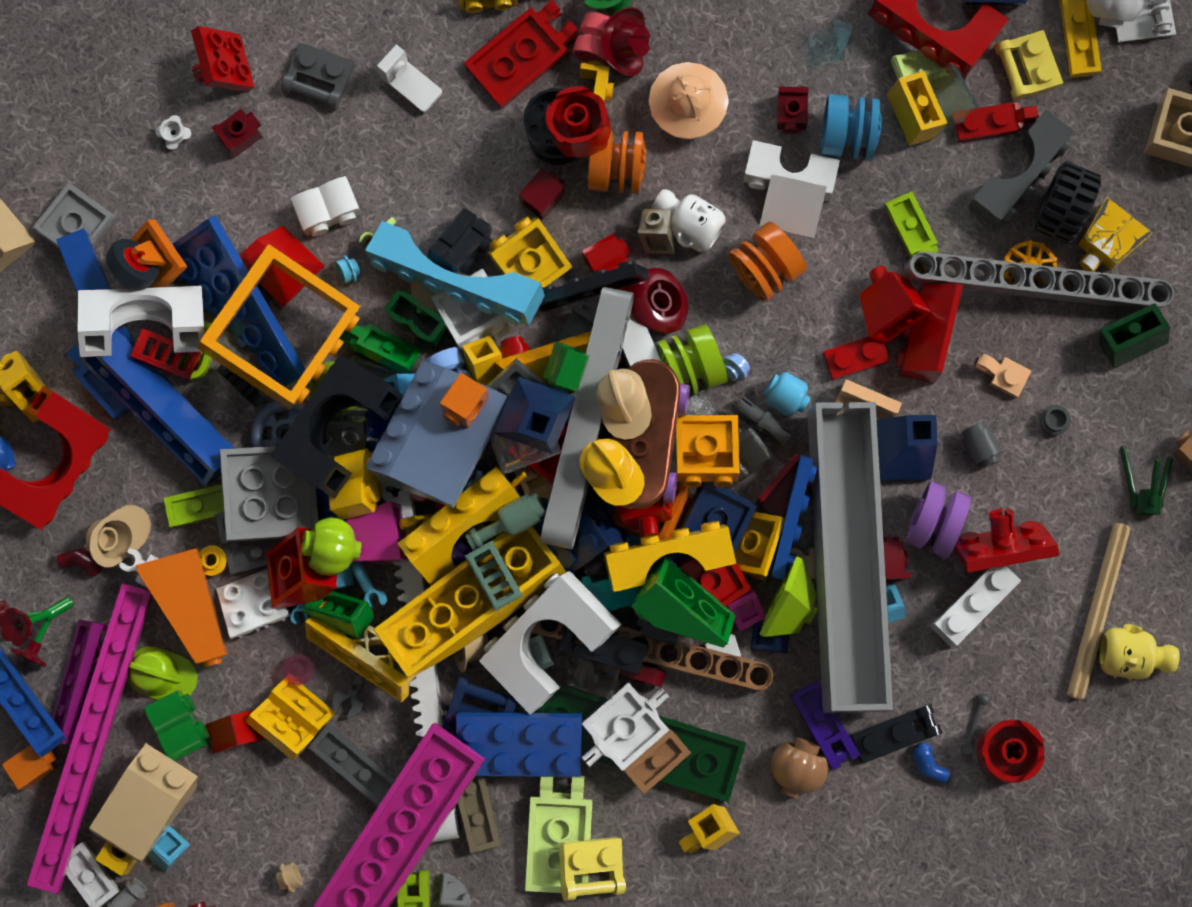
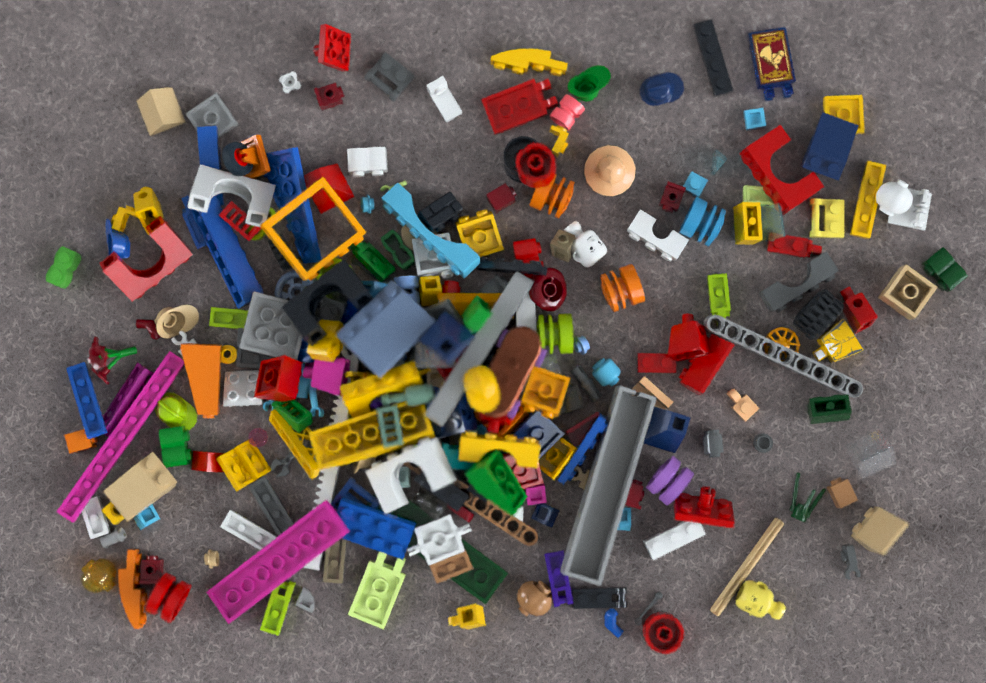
camera: 15 degrees right, 5 degrees up
(328, 815) = (247, 530): none -> white plate
(330, 546) = (299, 374): lime plant -> none
(463, 401) = (407, 316): orange brick -> none
(587, 858) = (393, 609): light yellow plate -> none
(624, 404) = (503, 349): tan piece -> none
(625, 41) = (584, 121): dark red hat -> none
(791, 603) = (564, 500): lime slope -> none
(793, 205) = (650, 257): white sticker -> none
(819, 80) = (695, 184): none -> medium azure plate
(1123, 179) = (860, 316): none -> red torso

